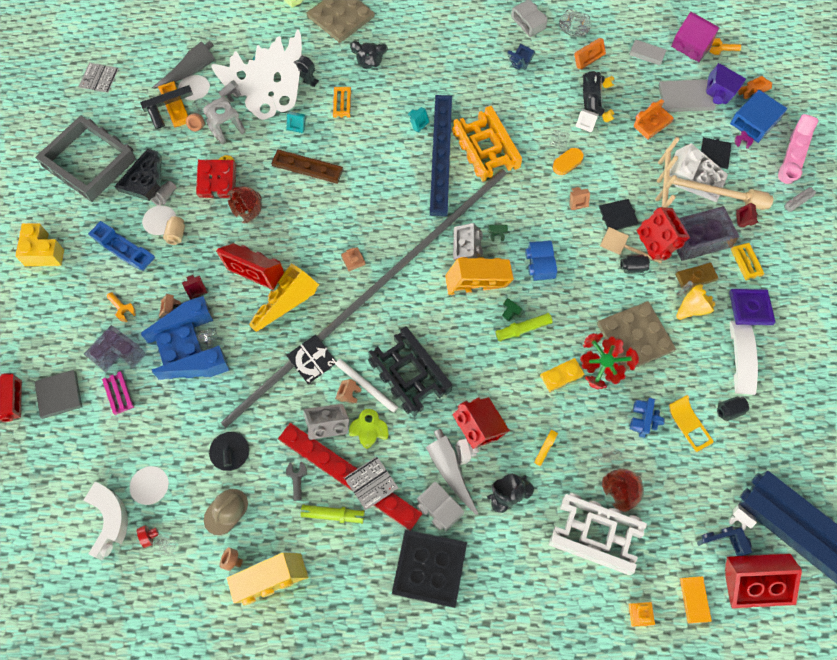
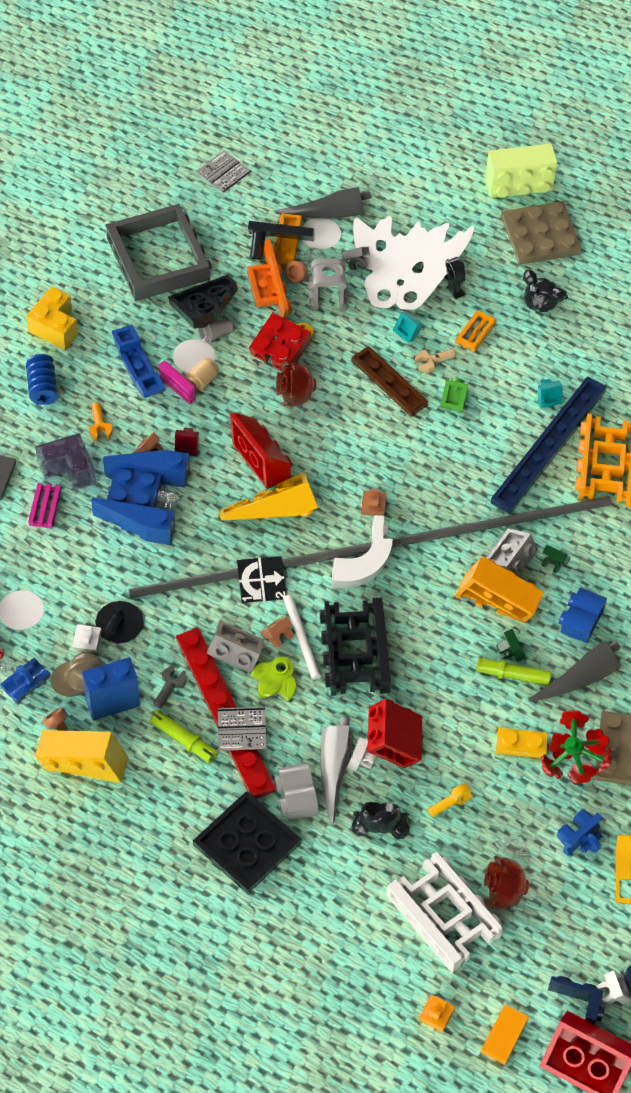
camera: 30 degrees right, 10 degrees down
(56, 298) = (41, 379): none -> blue piece
(159, 246) = (177, 382): none -> dark pink tile
(179, 140) = (267, 283): none -> orange bracket
(187, 543) = (25, 680): none -> blue hips
(213, 479) = (87, 638): none -> white tile
(258, 513) = (111, 688): none -> blue brick
(327, 143) = (432, 359): none -> tan bar
(357, 153) = (454, 394): none -> bright green bracket
(374, 316) = (361, 570): none -> white arch
(569, 298) = (589, 669): none -> dark grey piece

